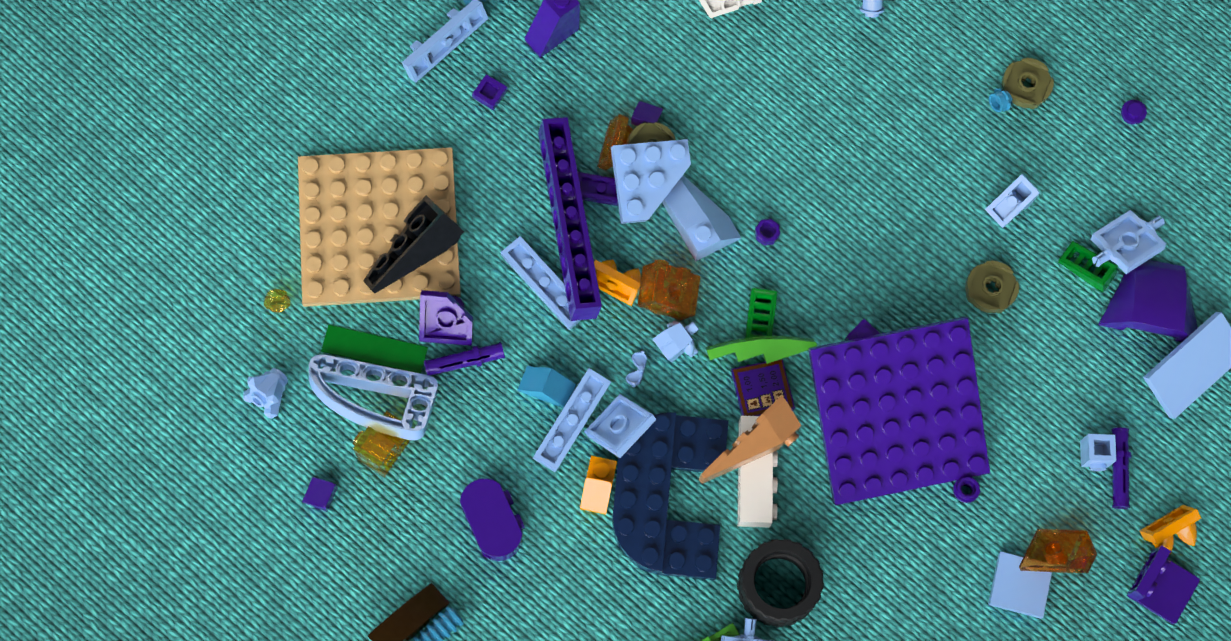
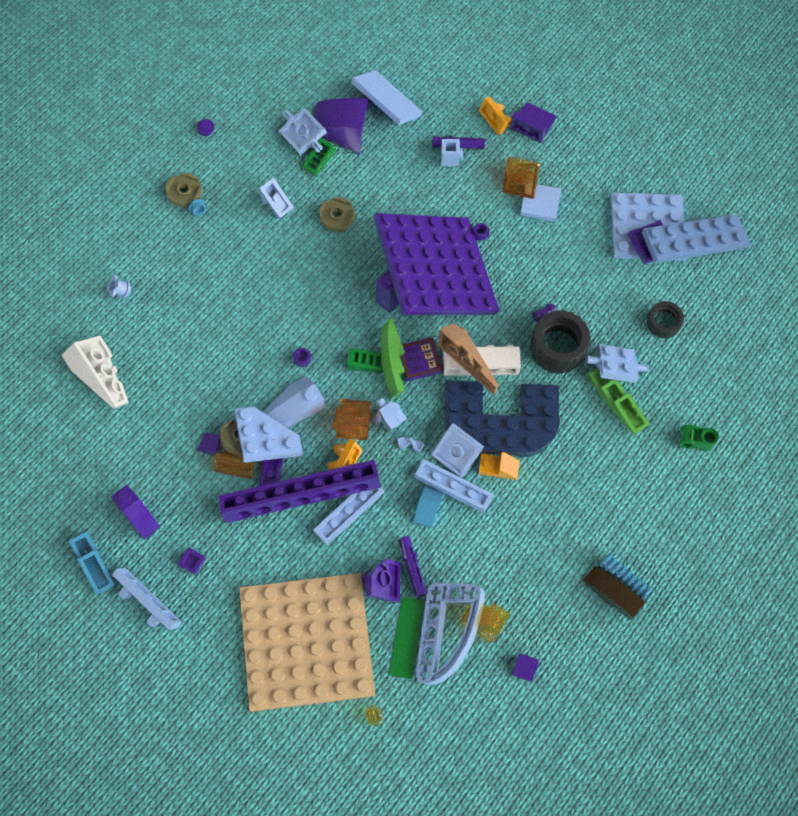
camera: 90 degrees left, 5 degrees down
(266, 391) = (450, 715): light blue rock -> none
(425, 237) = (323, 603): black wedge -> none
(492, 519) = (533, 537): dark purple brick -> none
(833, 572) = (547, 309): none -> dark purple pin

